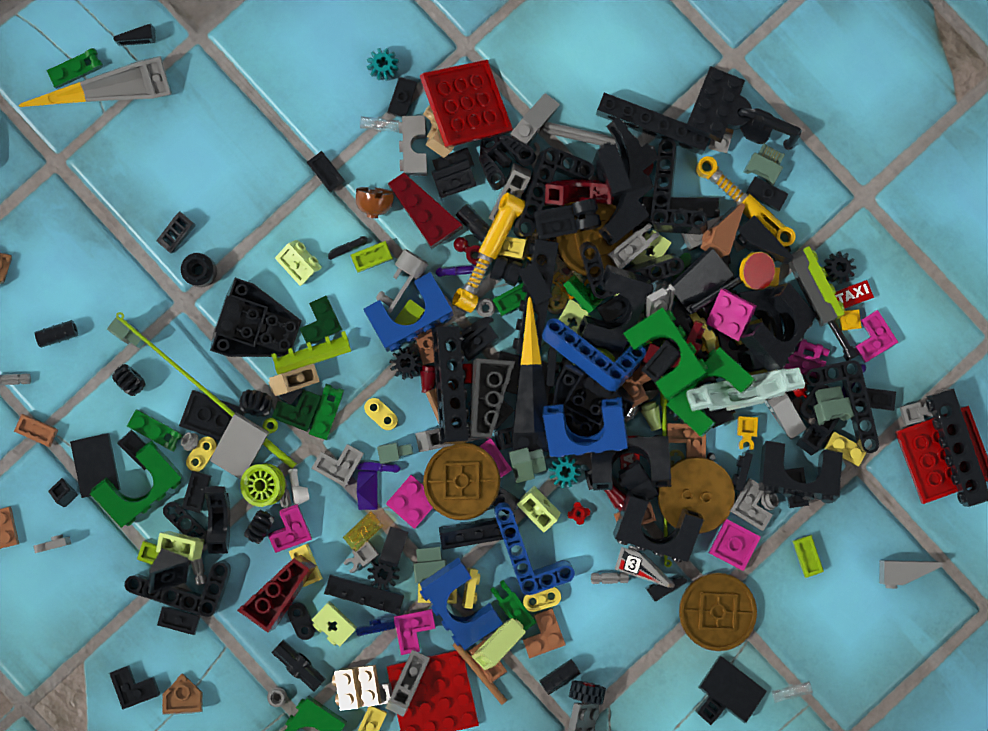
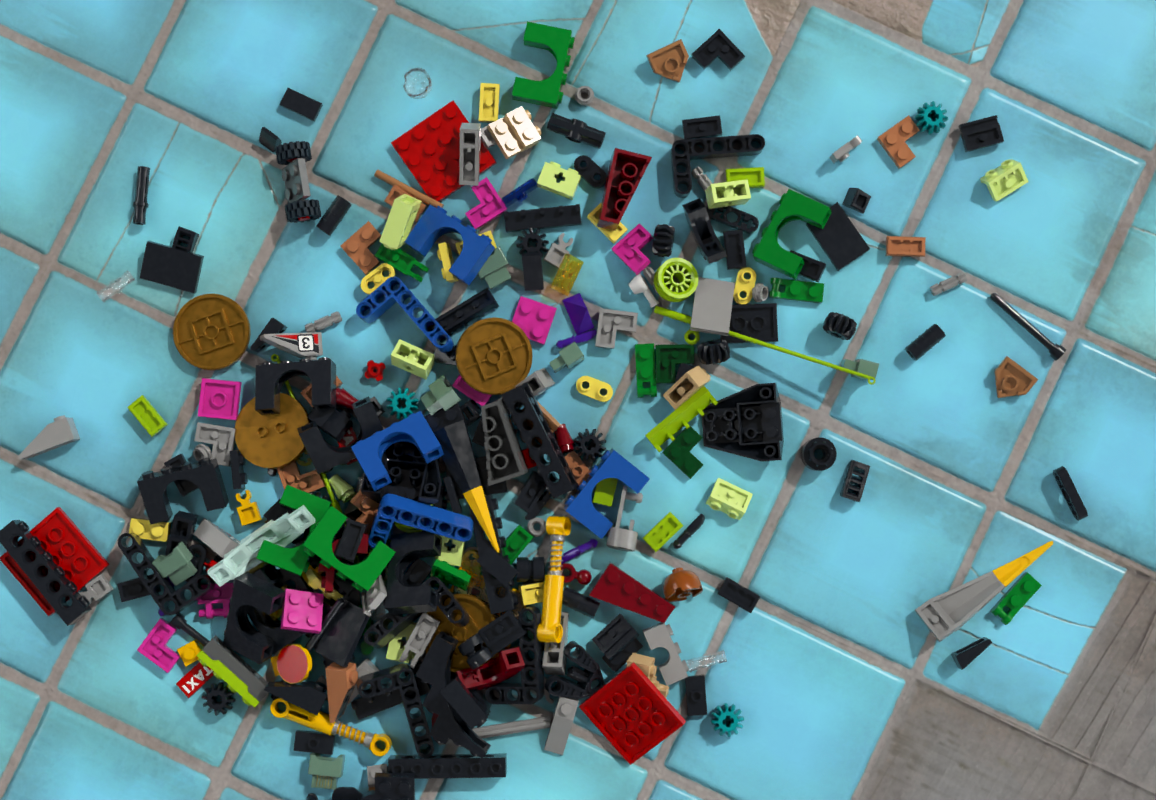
camera: 165 degrees right, 0 degrees up
(167, 571) = (729, 166): black slope -> none

